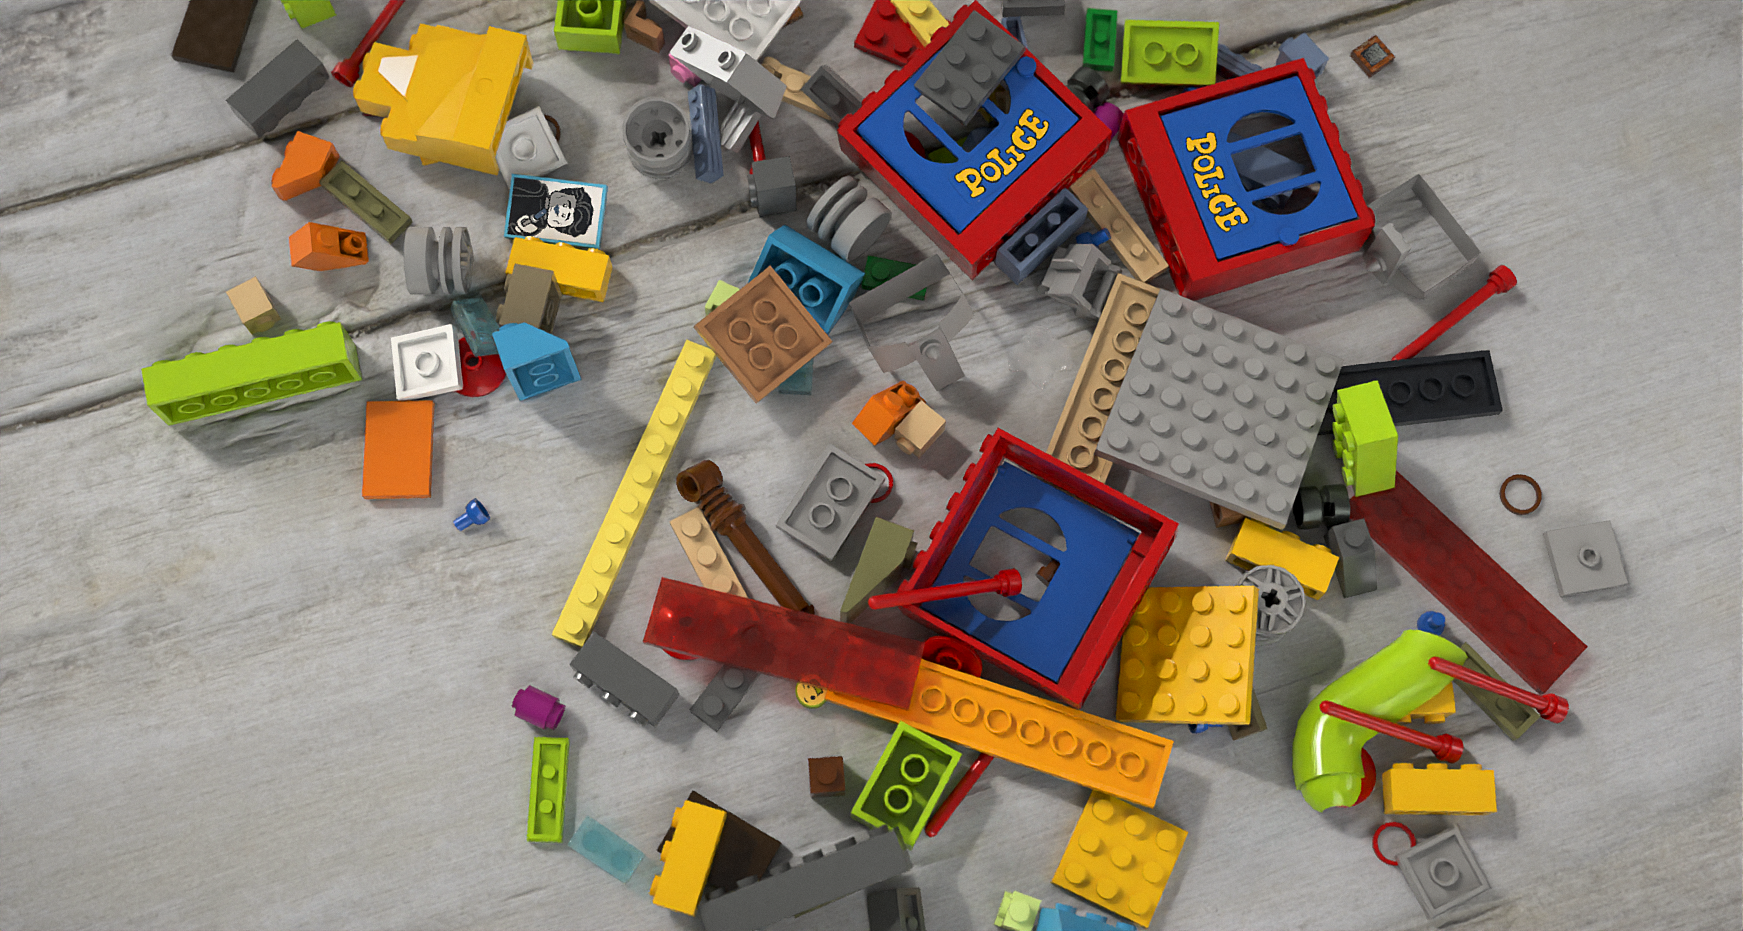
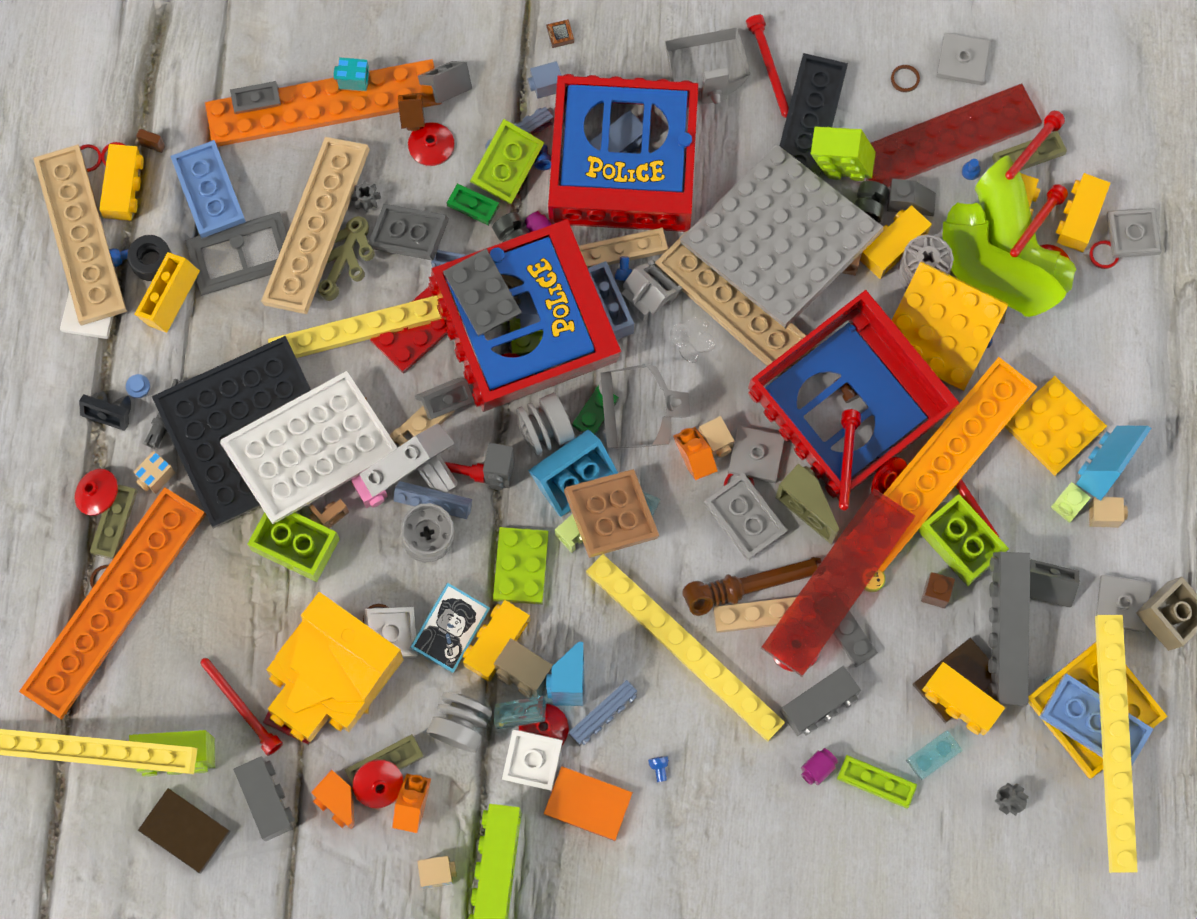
camera: 65 degrees left, 0 degrees up
(346, 197) = (373, 774): none -> red dish
(516, 425) = (603, 713): none -> sand blue piece
(665, 264) = (520, 565): none -> lime plate
(918, 487) = (756, 454): none -> light grey plate
(1293, 685) = (988, 267): none -> lime animal

